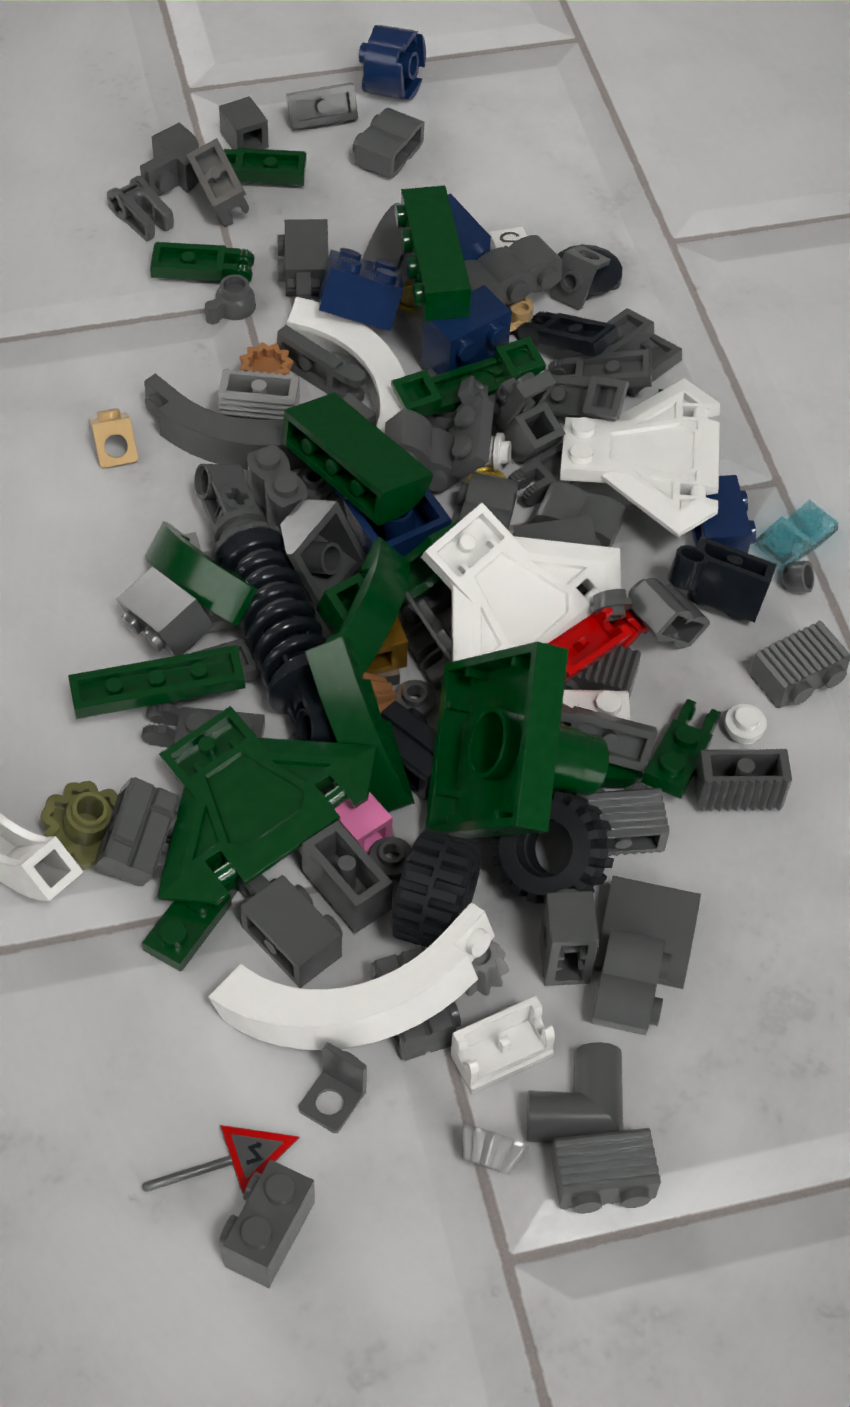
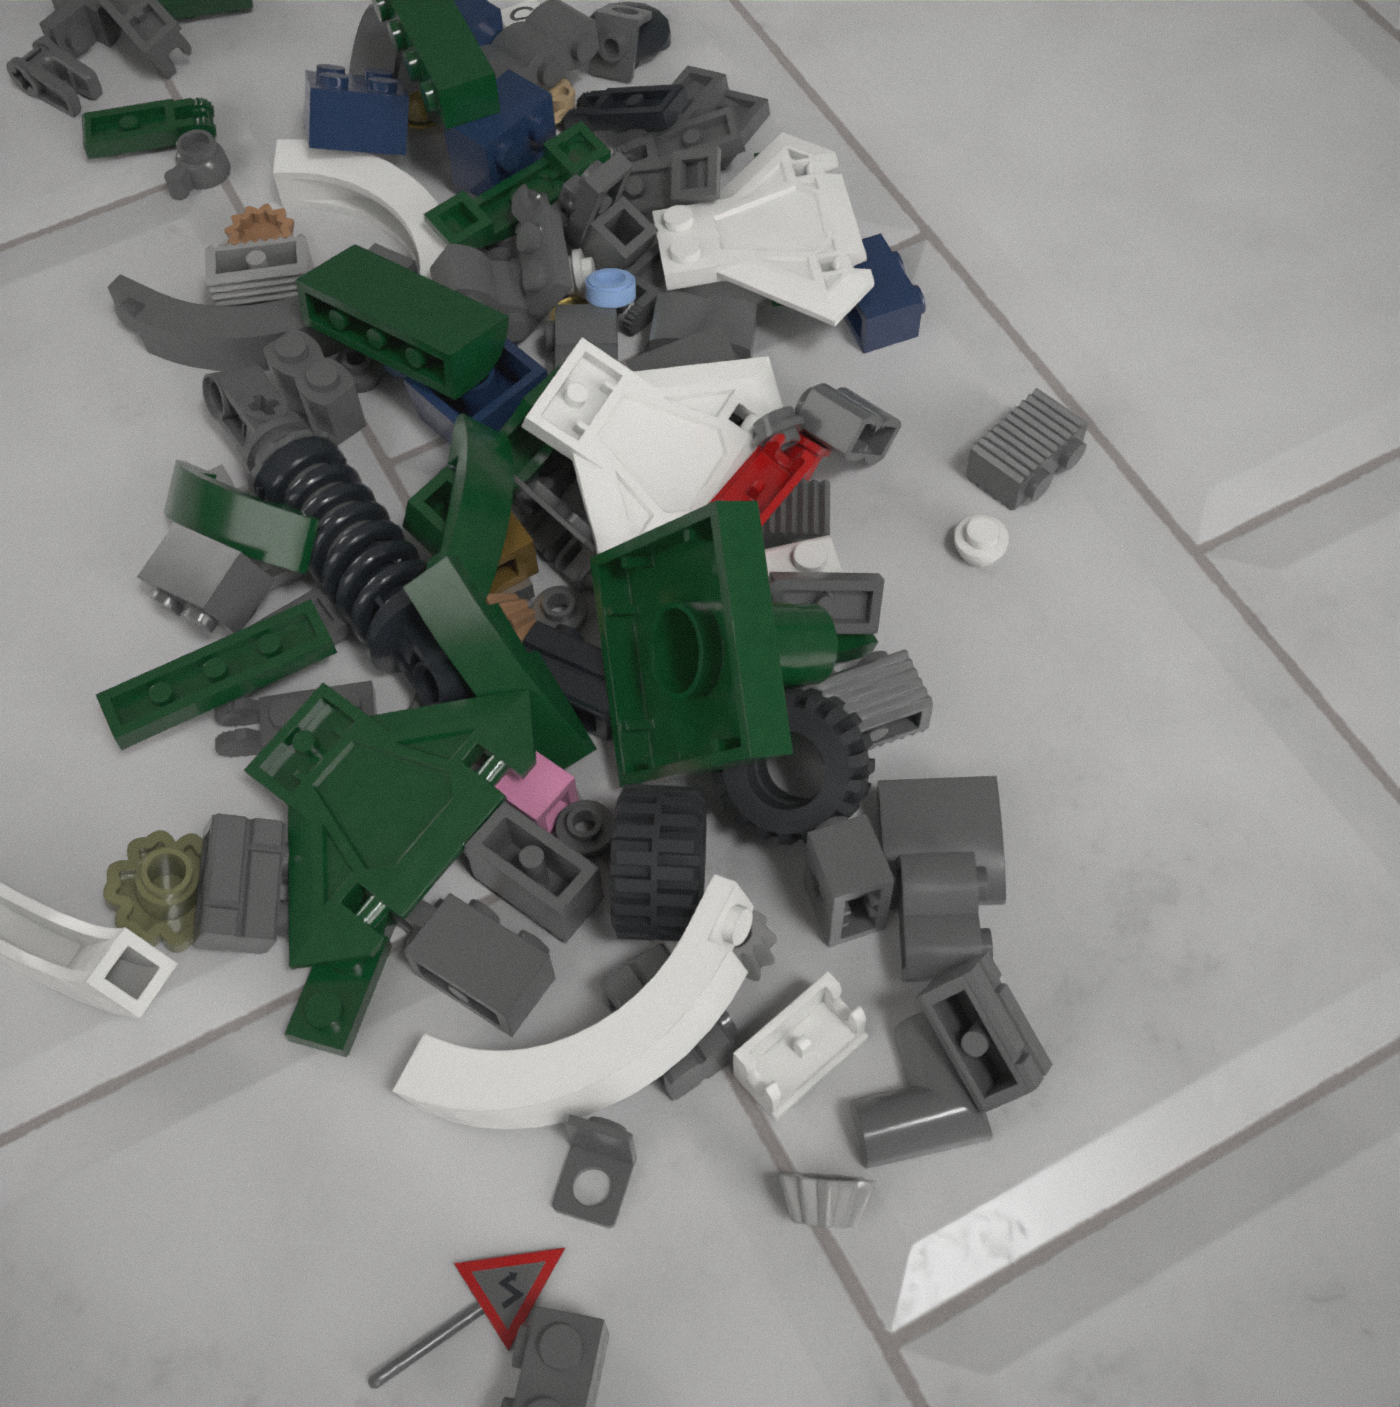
camera: 10 degrees left, 5 degrees up
(110, 423) = (81, 350): tan bracket -> none
(305, 256) = (276, 90): dark grey hinge -> none
(321, 366) = (329, 218): dark grey hinge -> none
(321, 545) = (388, 443): dark grey slope -> none
(517, 468) = (610, 288): none -> light blue tile
(605, 1170) = (983, 1184): dark grey brick -> none
(635, 1065) = (984, 1032): none -> dark grey brick
(678, 751) = (913, 597): dark green hinge -> none
(722, 577) = (902, 364): black hinge -> none
(742, 779) = (1002, 612): dark grey brick -> none
(798, 535) = (972, 291): clear light blue slope -> none
(798, 577) = (989, 341): dark grey hinge -> none

